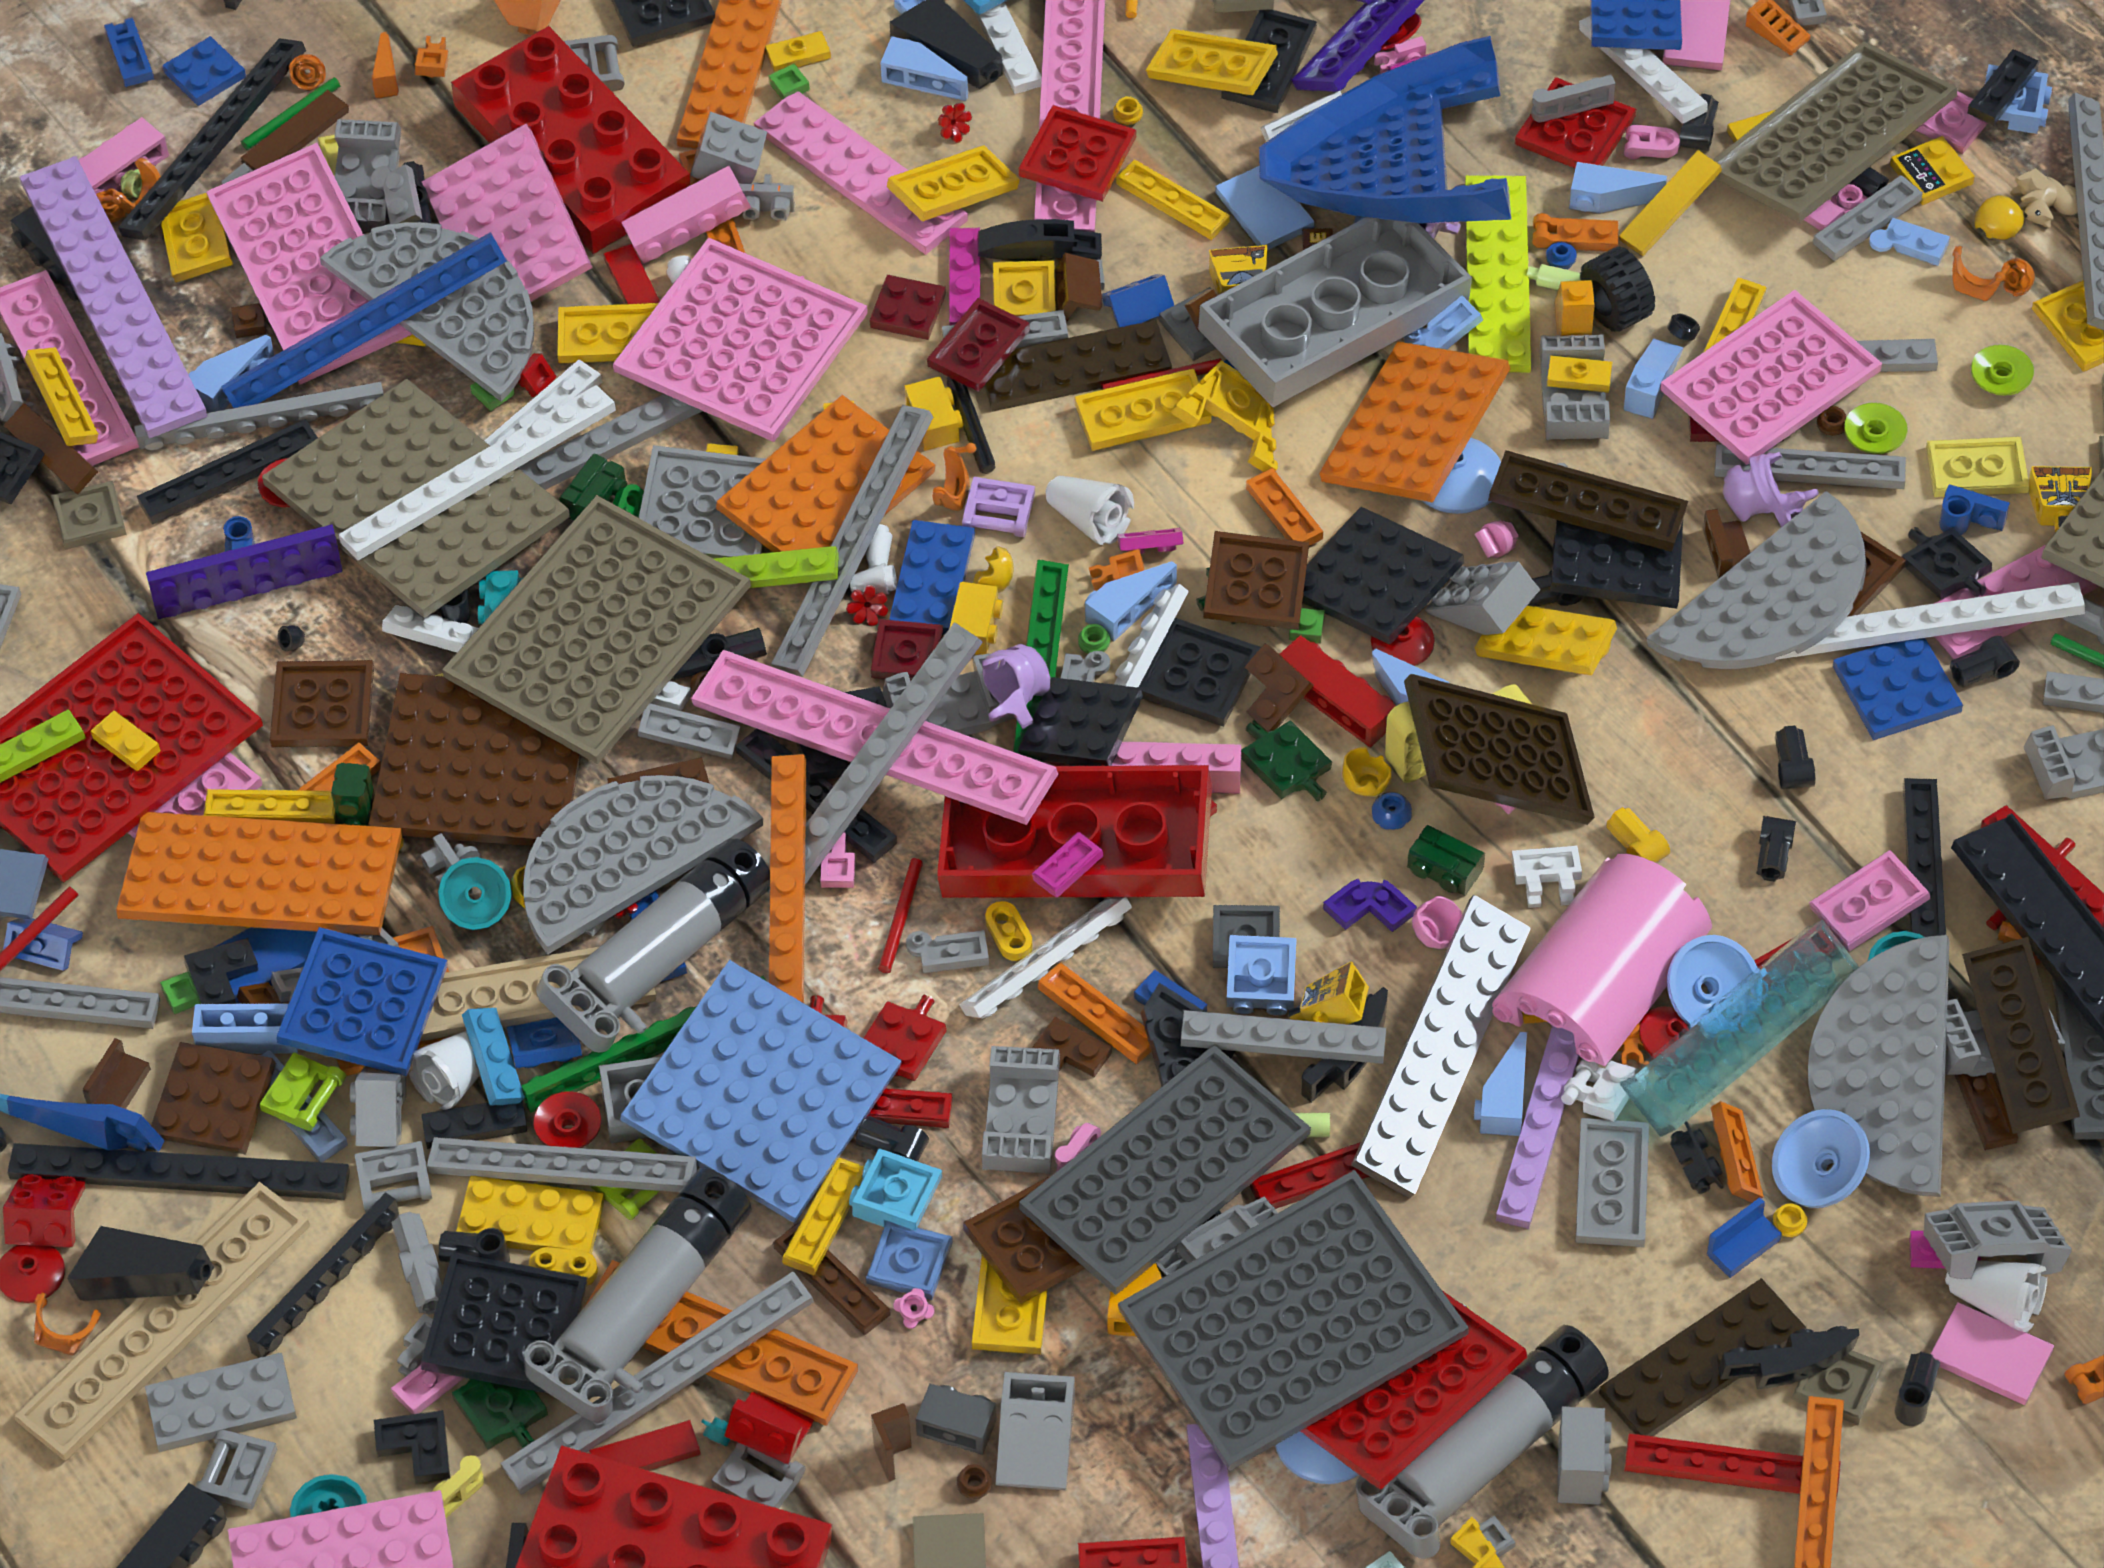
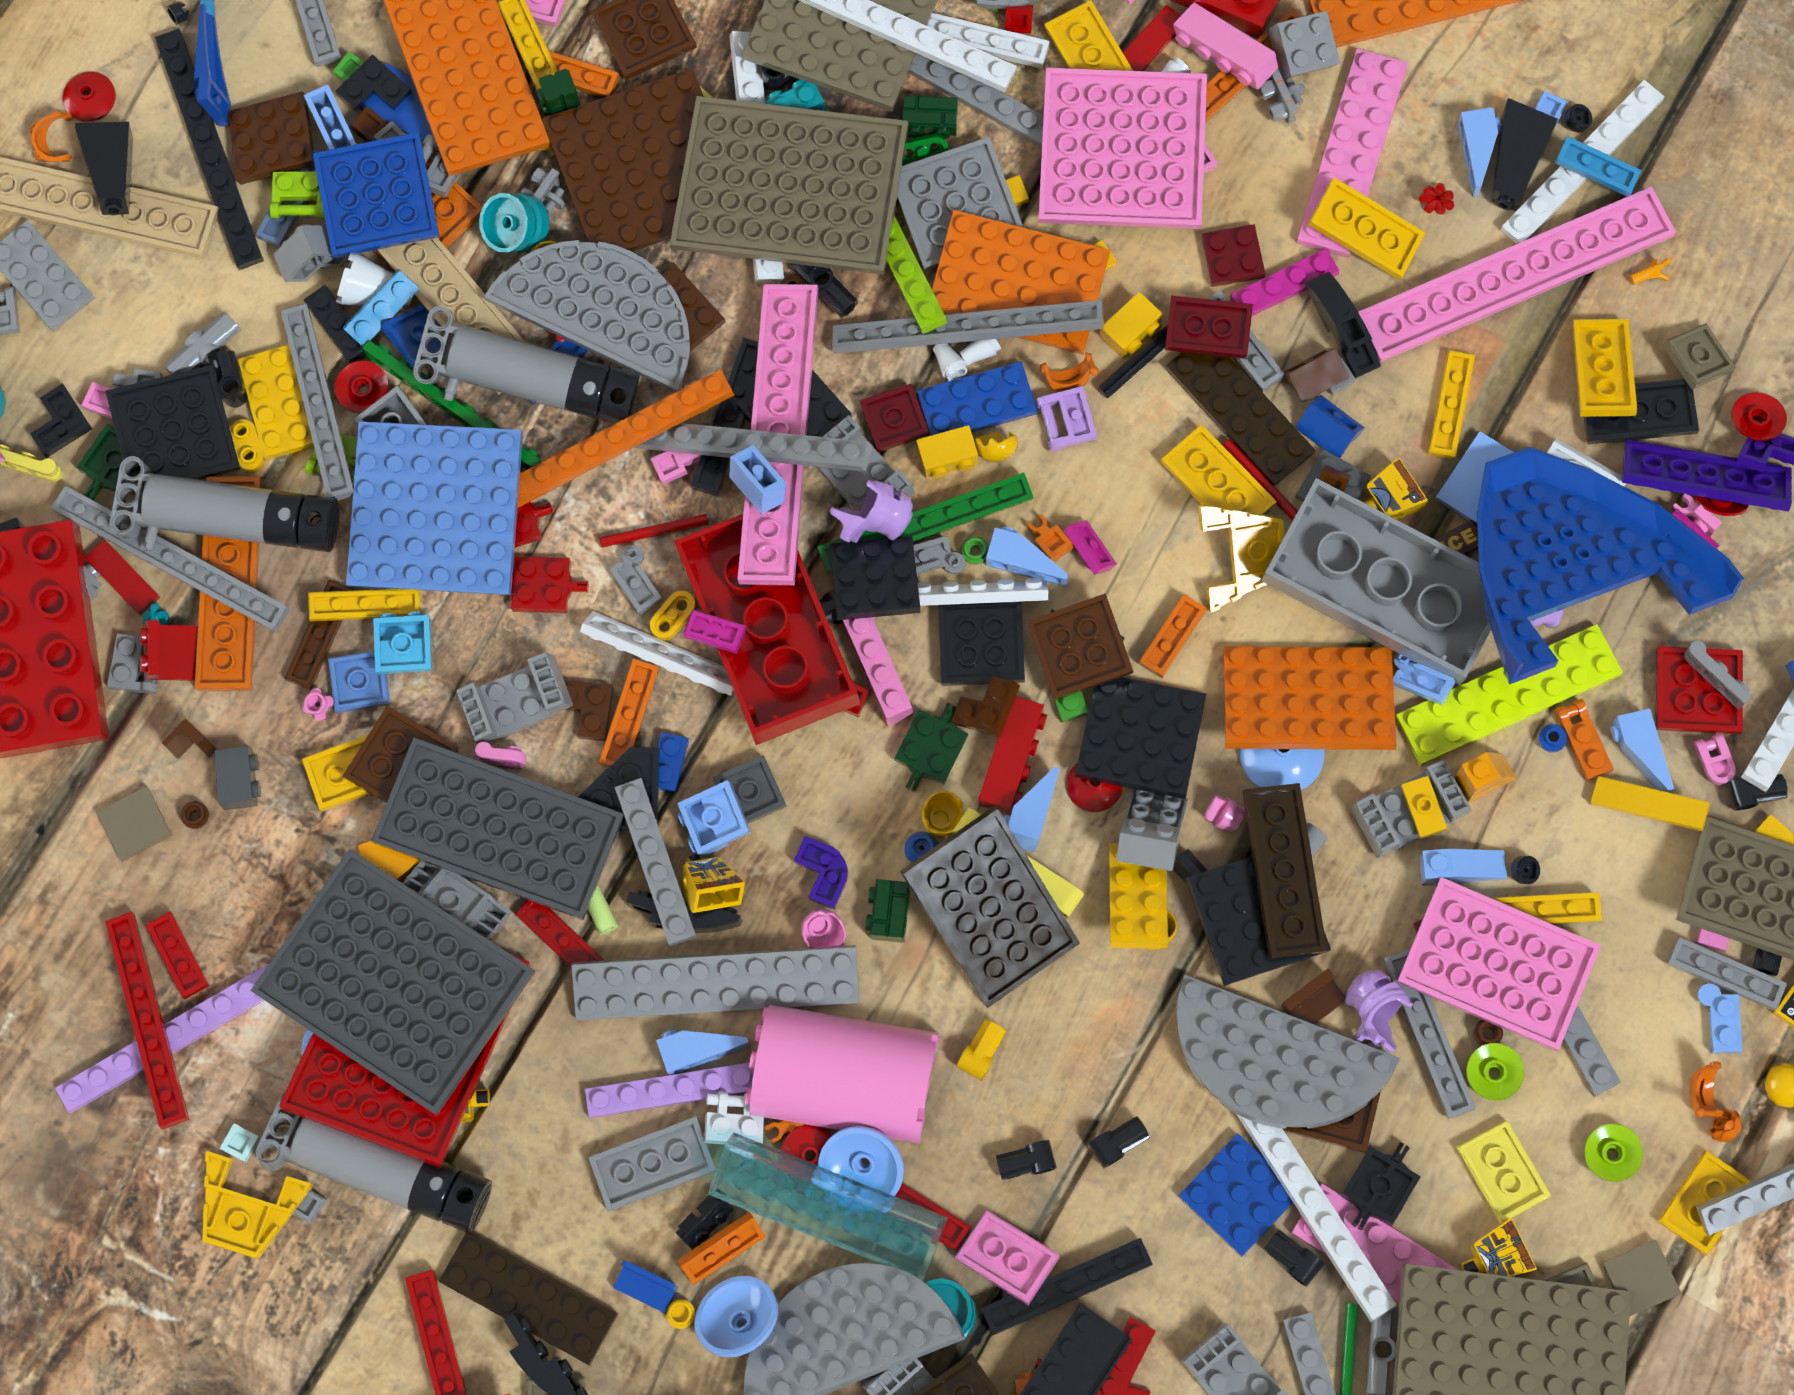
camera: 70 degrees right, 20 degrees up
(42, 1211) = (133, 75): red bracket -> none
(116, 1077) = (258, 66): reddish brown panel -> none
(317, 1282) = (155, 288): black plate -> none
(393, 1166) = (272, 286): light grey plate -> none
(689, 731) = (739, 297): light grey plate -> none
(788, 81) = (1412, 53): bright green plate -> none
(798, 51) = (1451, 44): yellow plate -> none
(867, 605) = (922, 367): red plant -> none
(903, 1141) = (449, 626): black piece -> none
(913, 1108) = (489, 622): red tile -> none
(926, 752) = (757, 479): none -> light blue brick
(1024, 287) = (1292, 335): yellow plate -> none
(1035, 1431) = (247, 838): light grey slope -> none
(1077, 153) = (1446, 308): red plate -> none
(1092, 506) = (1095, 488): white cone -> none
(1128, 111) = (1525, 319): yellow plate -> none
(1547, 865) = (923, 990): white plate -> none
(1551, 276) = (1525, 748): yellowish green cylinder -> none
(1583, 1455) = (390, 1243): light grey brick -> none
(1619, 288) = (1523, 800): black tyre -> none
(1849, 197) = (1734, 954): bright pink plate -> none
(1965, 506) = (1452, 1199): blue plate -> none

